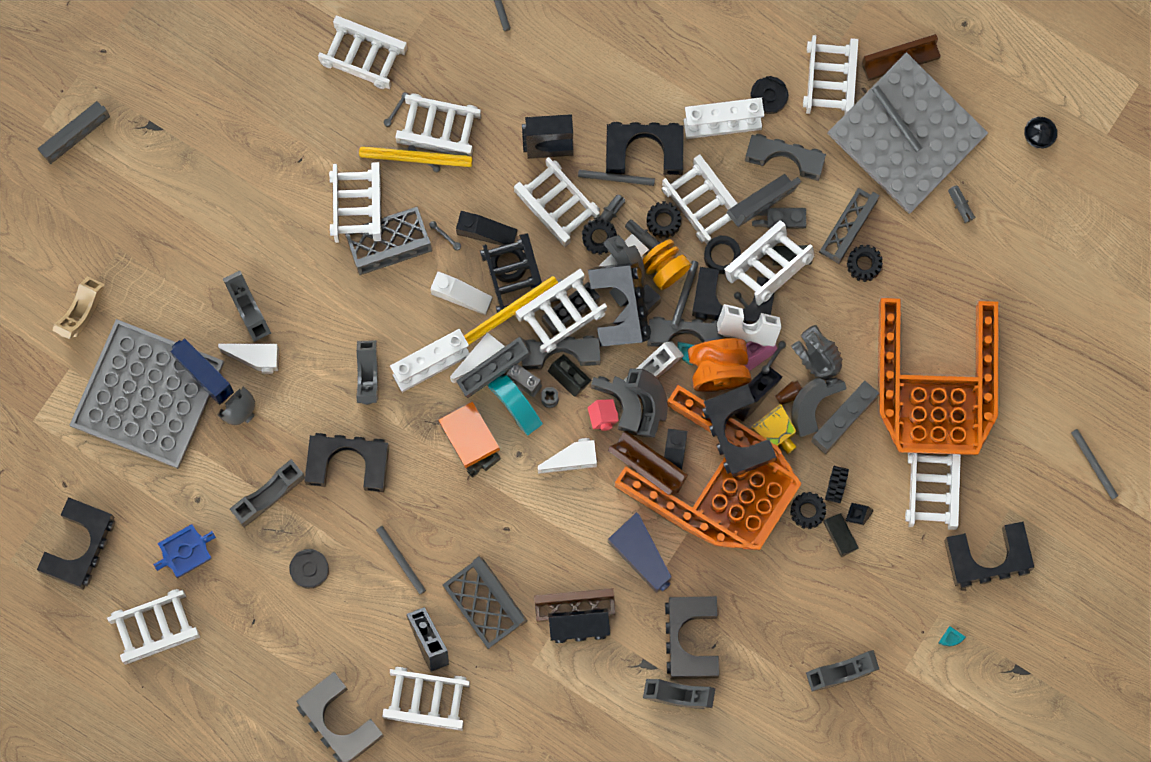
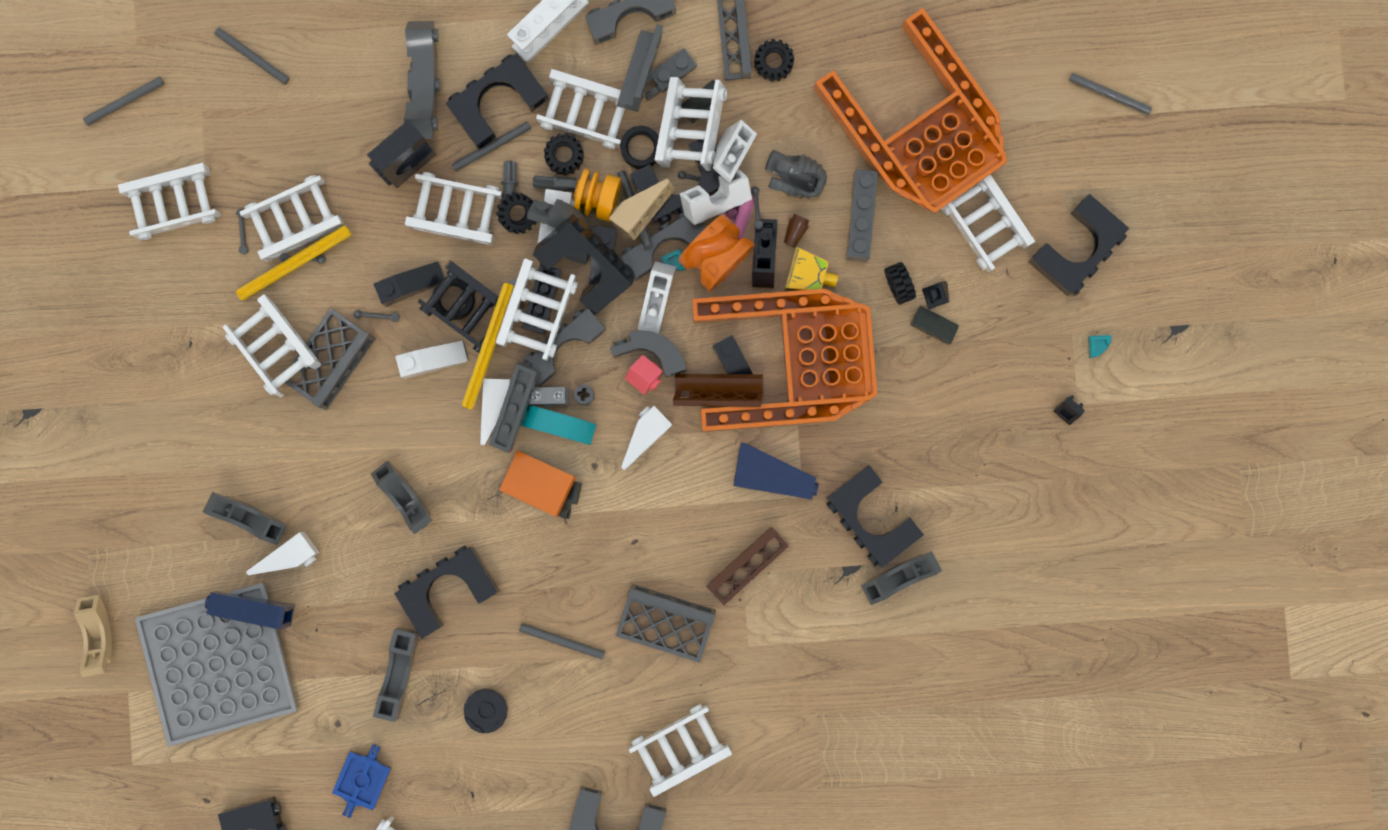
camera: 40 degrees left, 10 degrees up
(238, 408) = (310, 616): dark grey cylinder -> none
(428, 639) = (640, 695): black slope -> none
(430, 360) = (451, 444): white fence -> none
(569, 375) = (585, 360): pearl dark grey slope -> none
(579, 625) = (765, 581): black brick -> none
(604, 95) = (422, 77): none -> dark grey brick
(653, 400) = (680, 329): dark grey arch -> none
(686, 295) = (639, 209): none -> tan slope
(720, 410) = (749, 297): black arch -> none
(786, 302) = (732, 149): none -> white slope
(807, 400) = (819, 226): dark grey arch -> none
(813, 499) = (903, 321): black tyre -> none
(842, 672) = (1028, 448): dark grey arch -> none
(893, 667) = (1069, 410): none -> black tile

